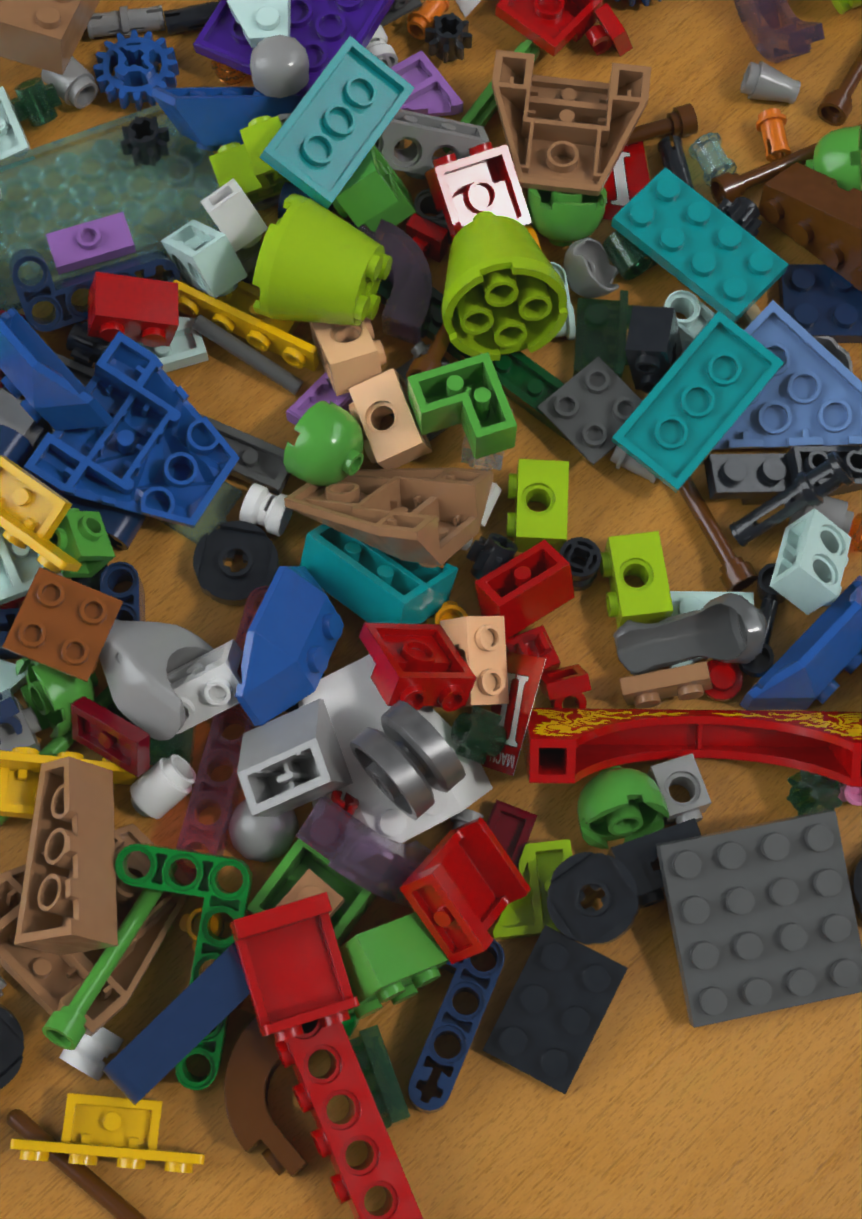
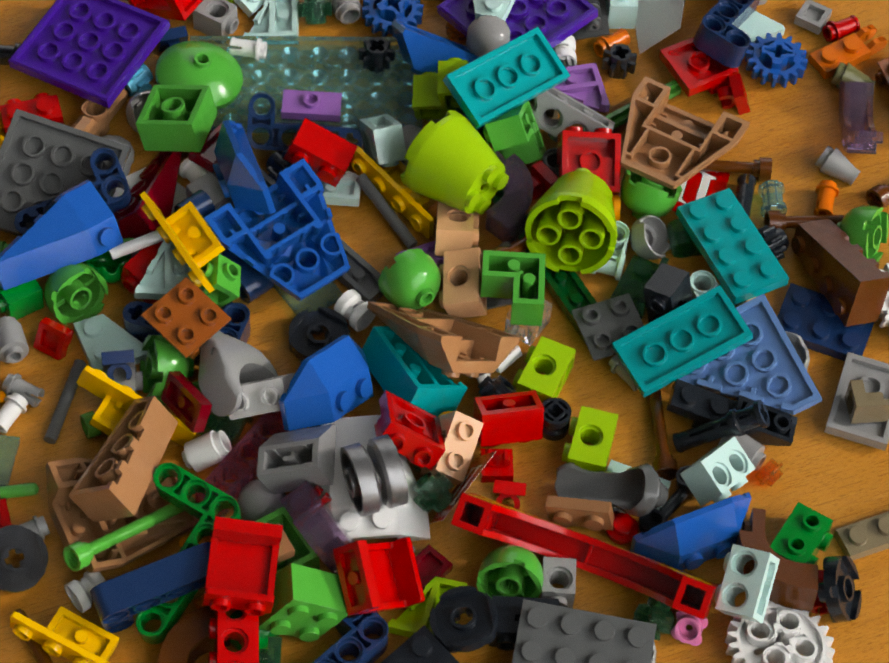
camera: 20 degrees right, 15 degrees down
(235, 215) = (412, 115): white brick -> none

